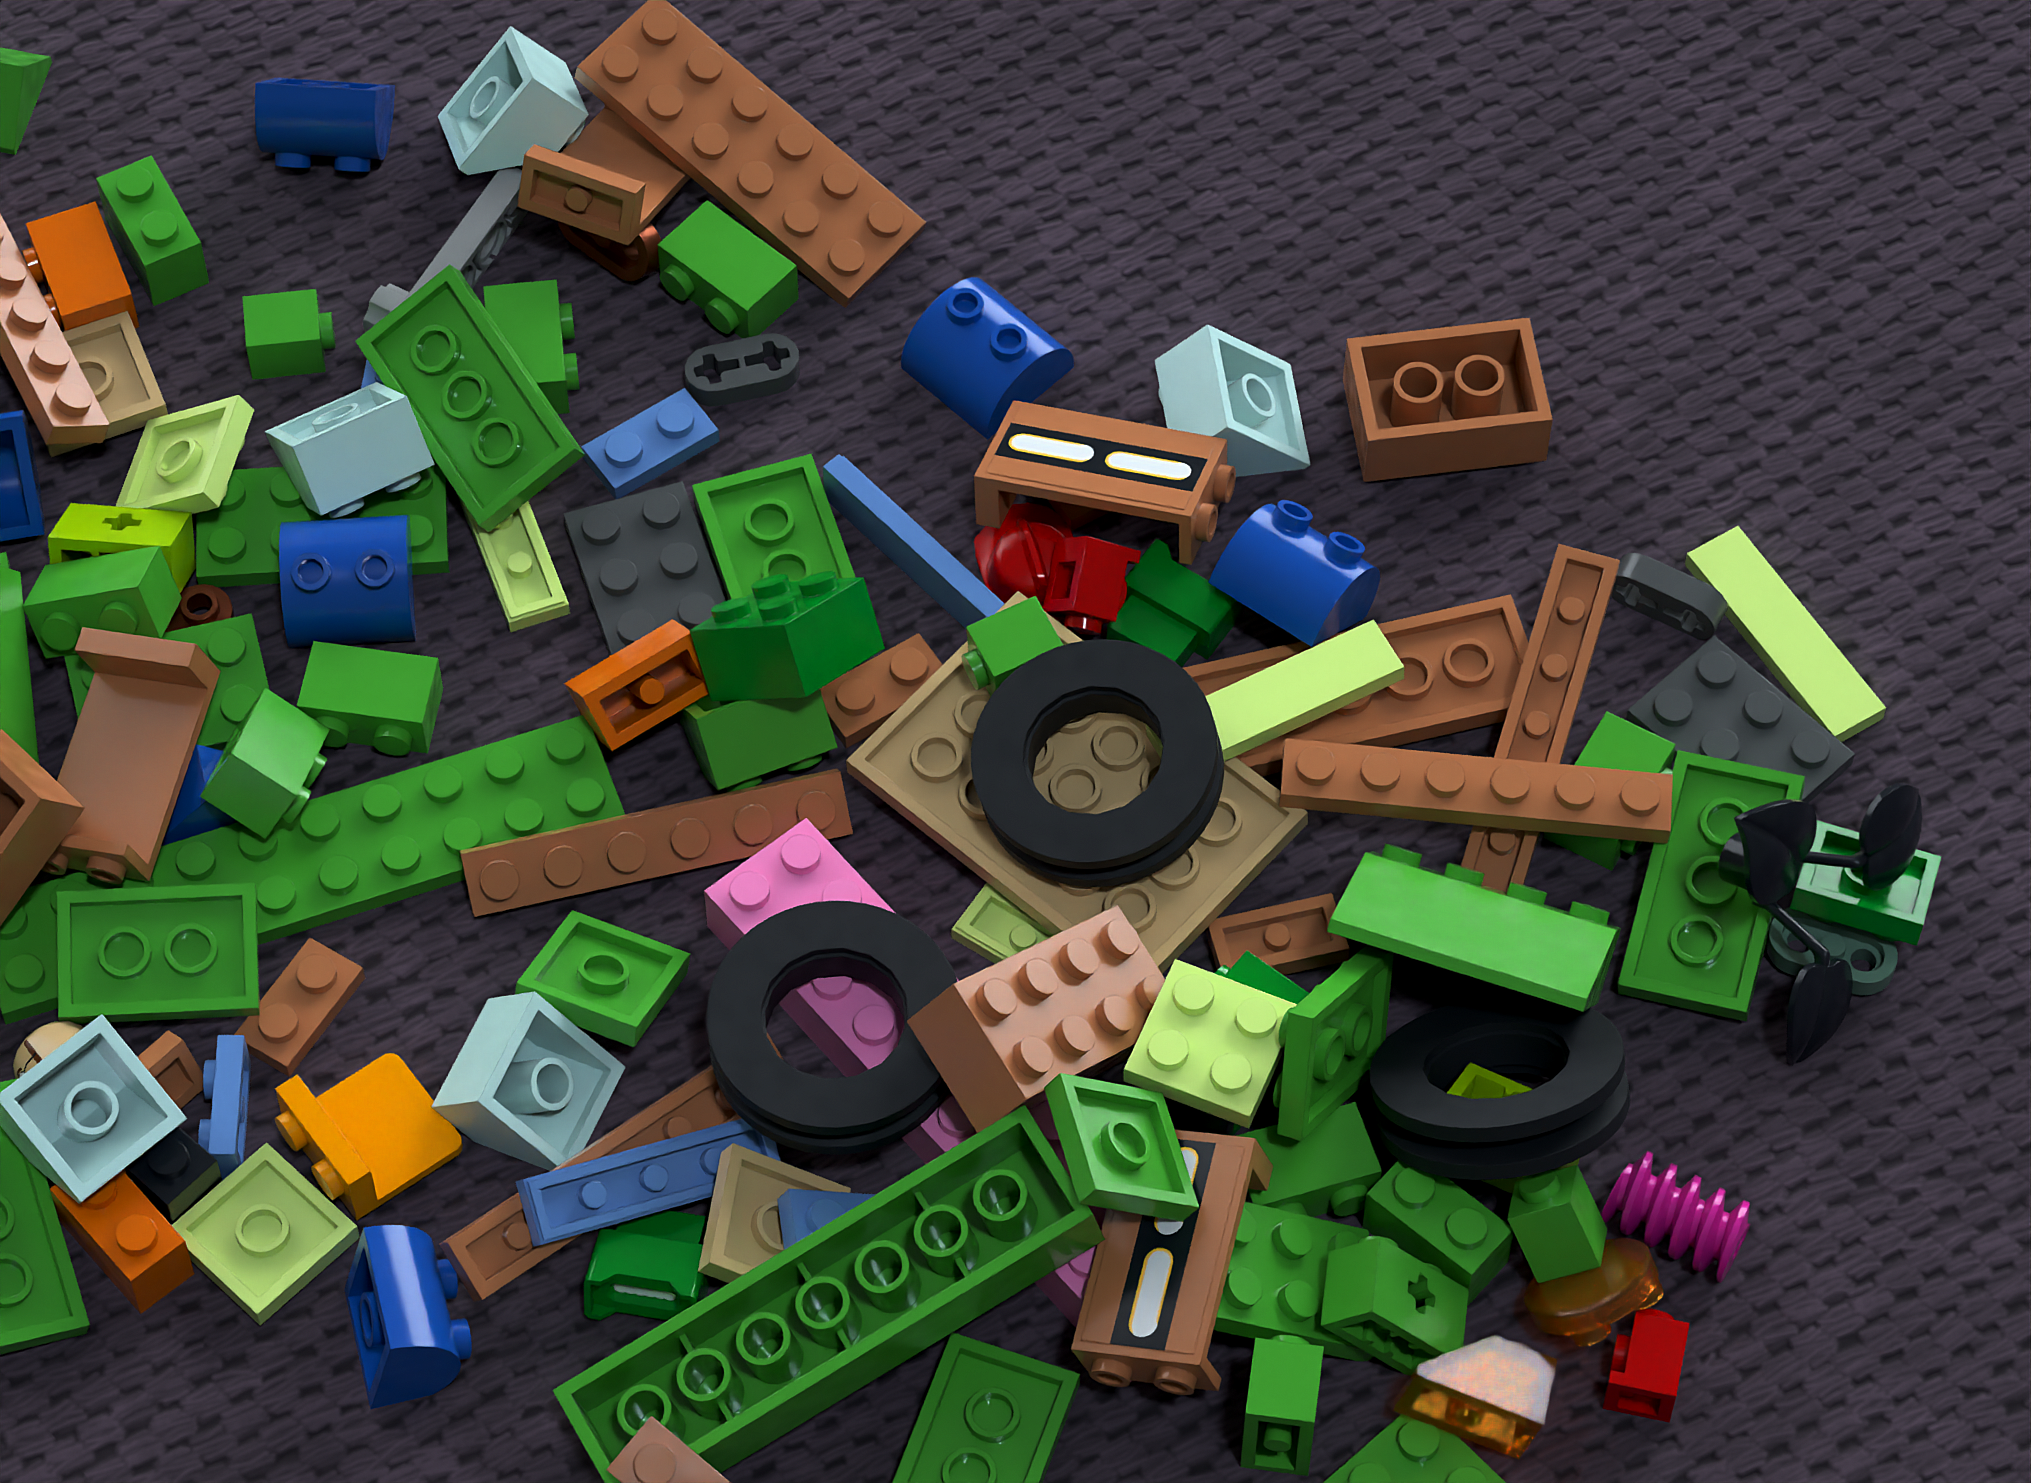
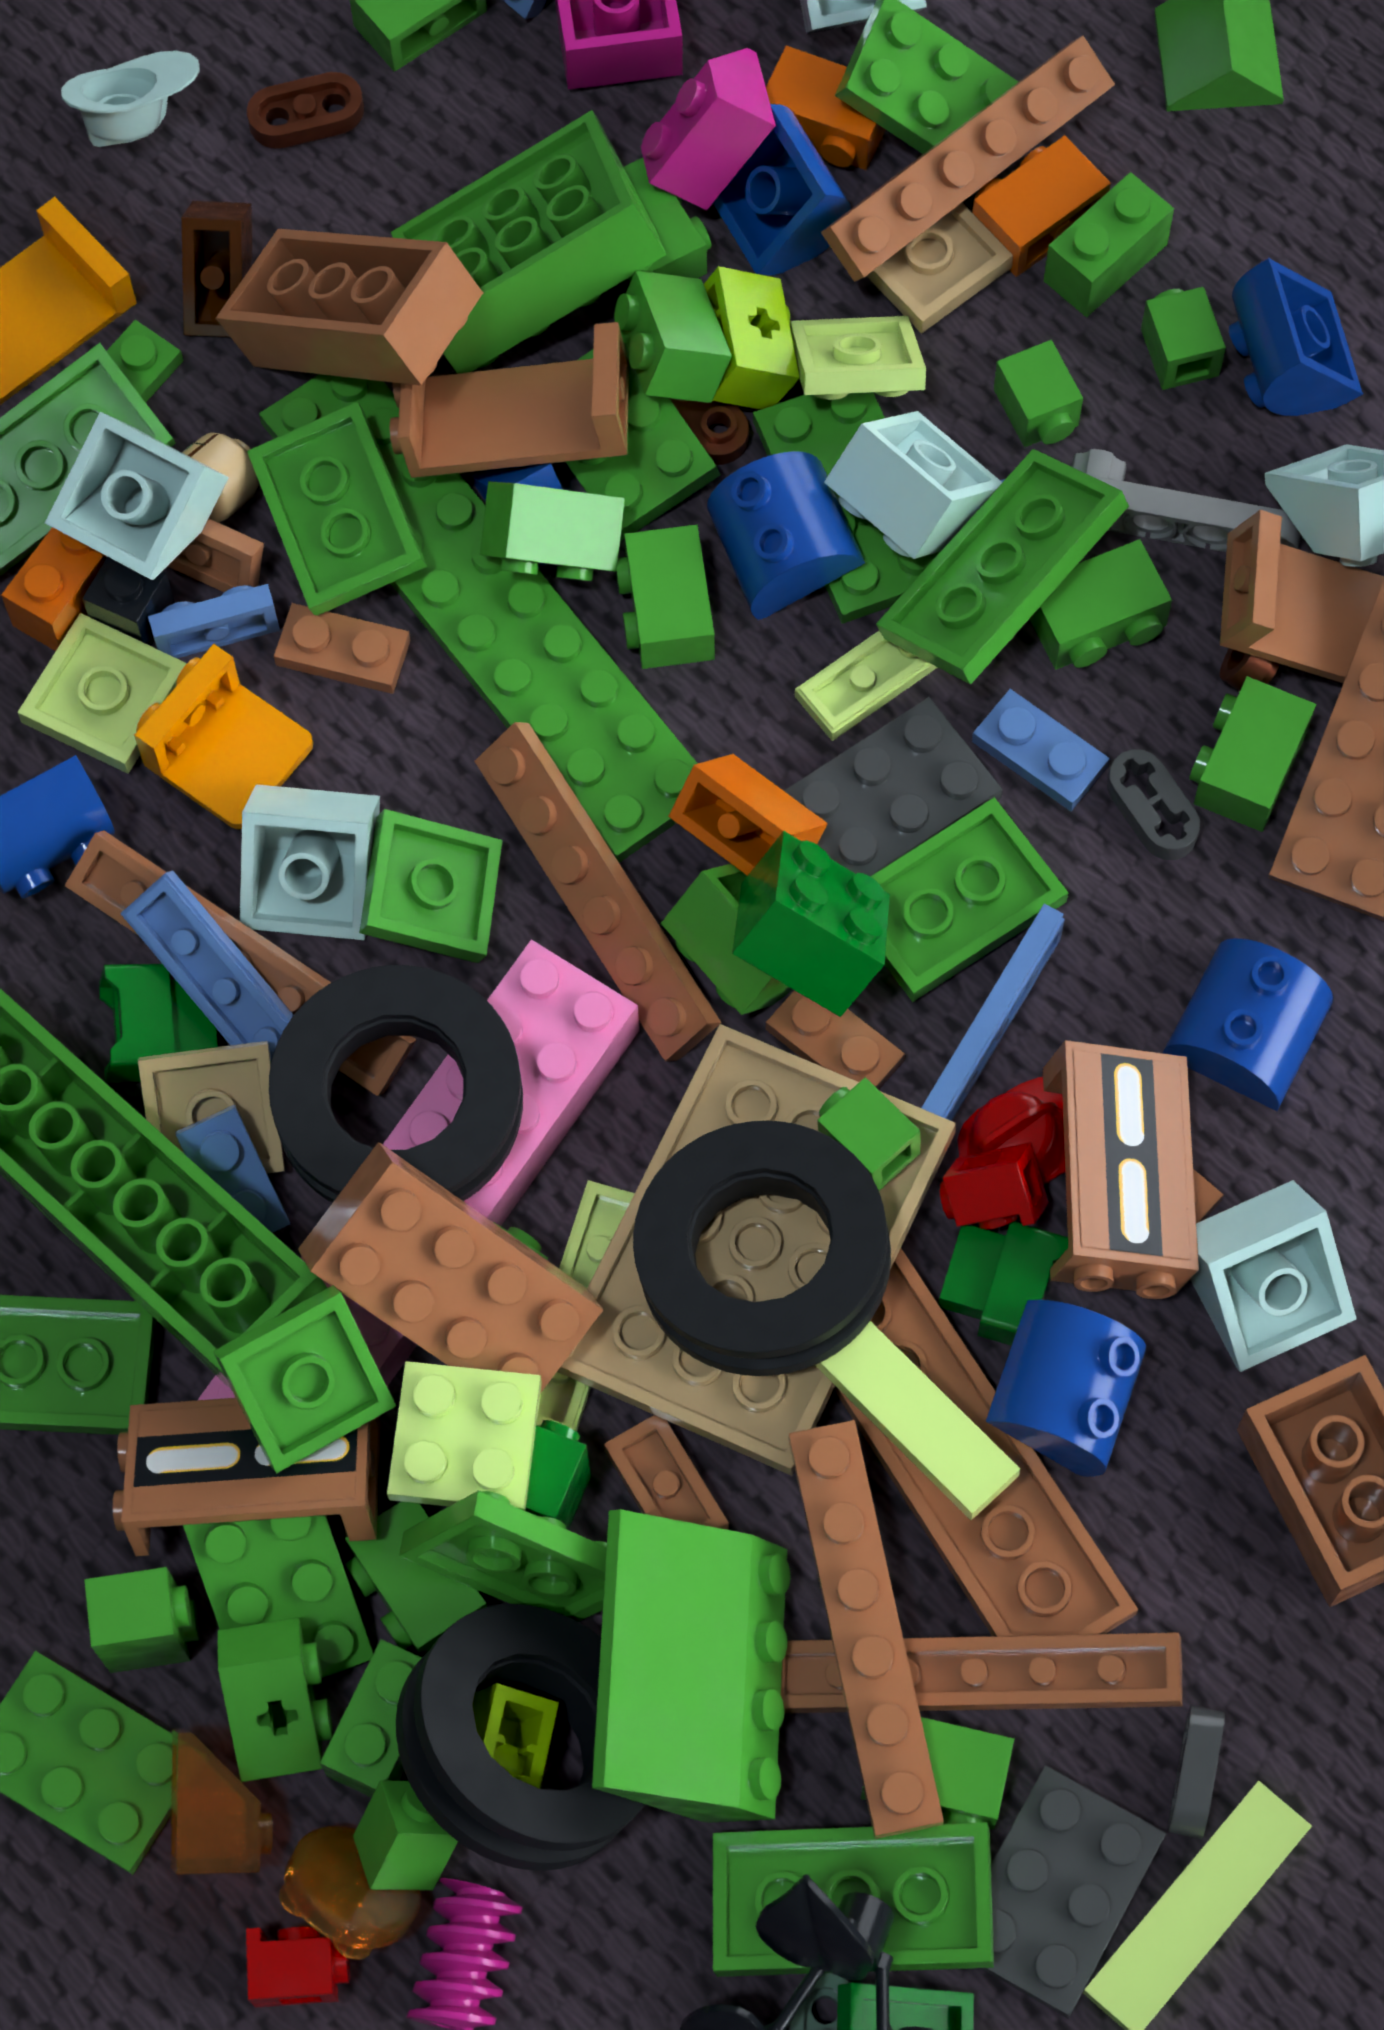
camera: 75 degrees right, 10 degrees up
(275, 202) = (1182, 337): none -> bright green brick

